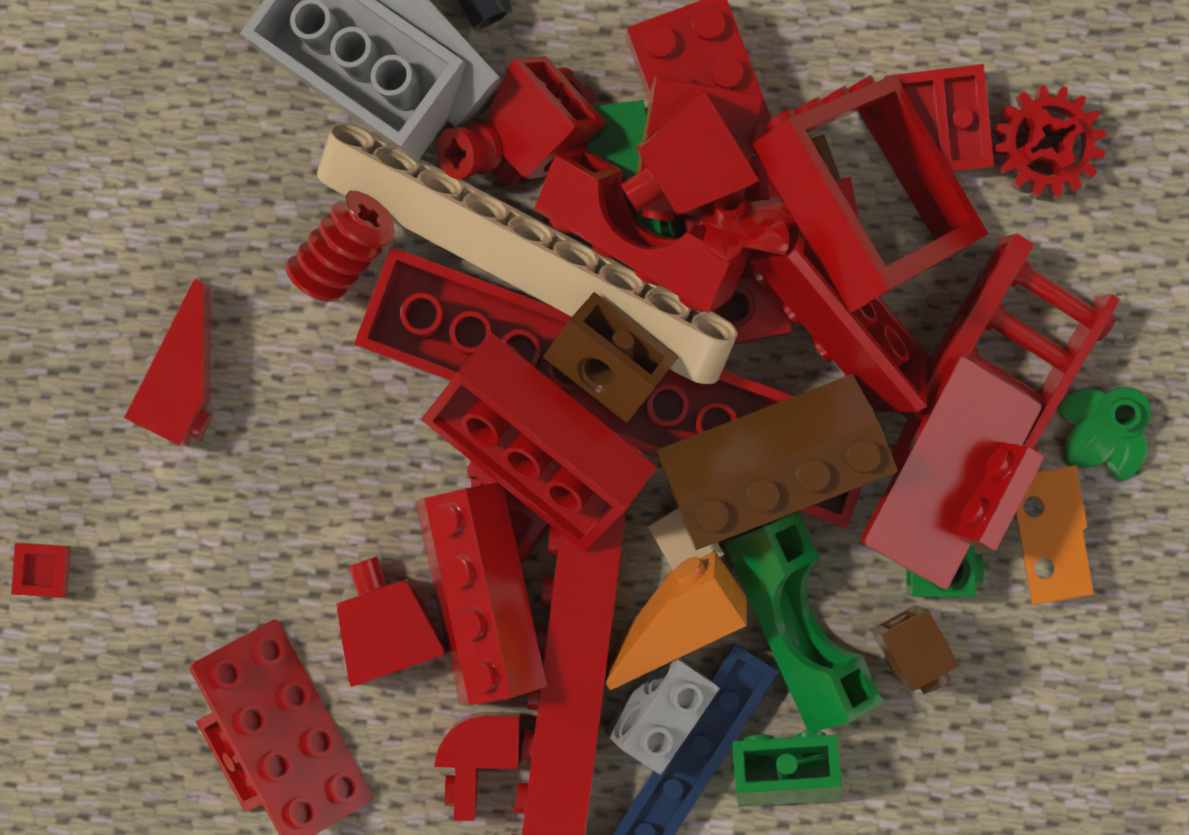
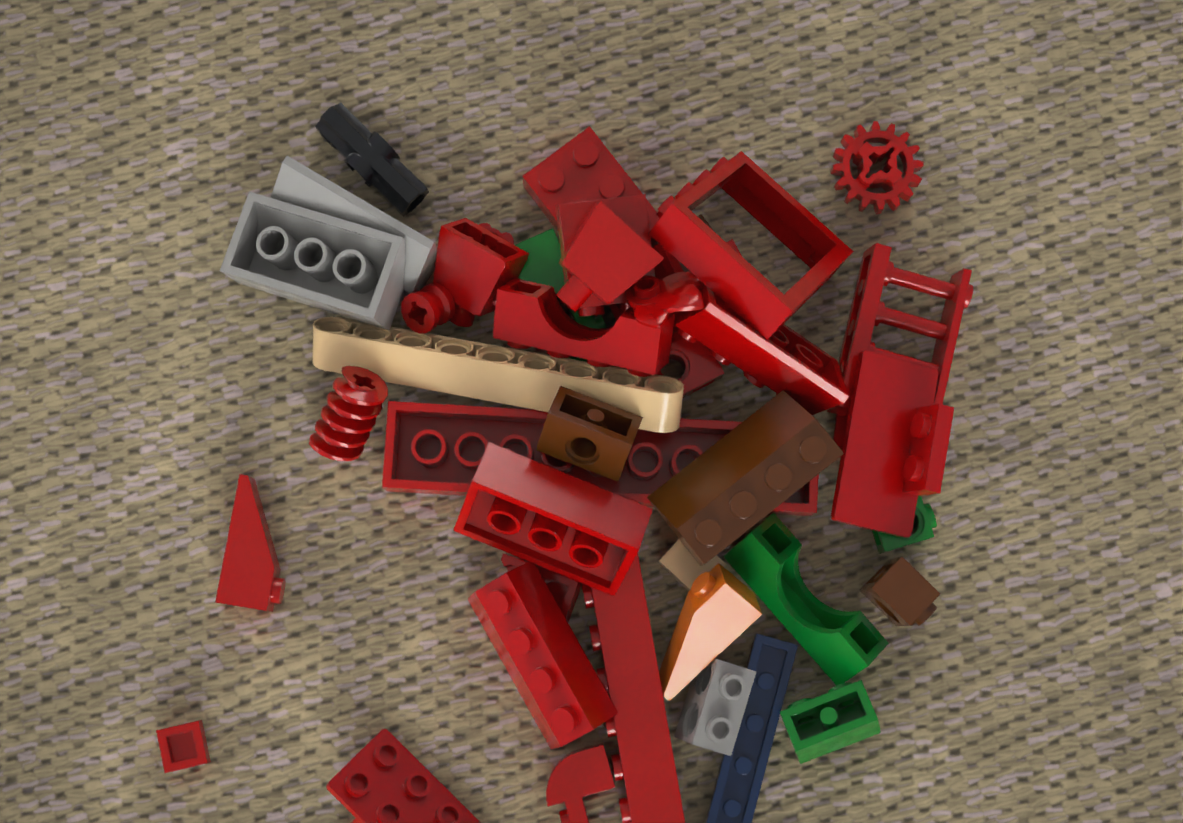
camera: 20 degrees left, 5 degrees down
(384, 626) = (473, 705): red torso -> none
(955, 113) = (797, 167): red wing -> none
(1056, 536) = (982, 470): orange piece -> none
(1100, 435) = (990, 382): green plate -> none

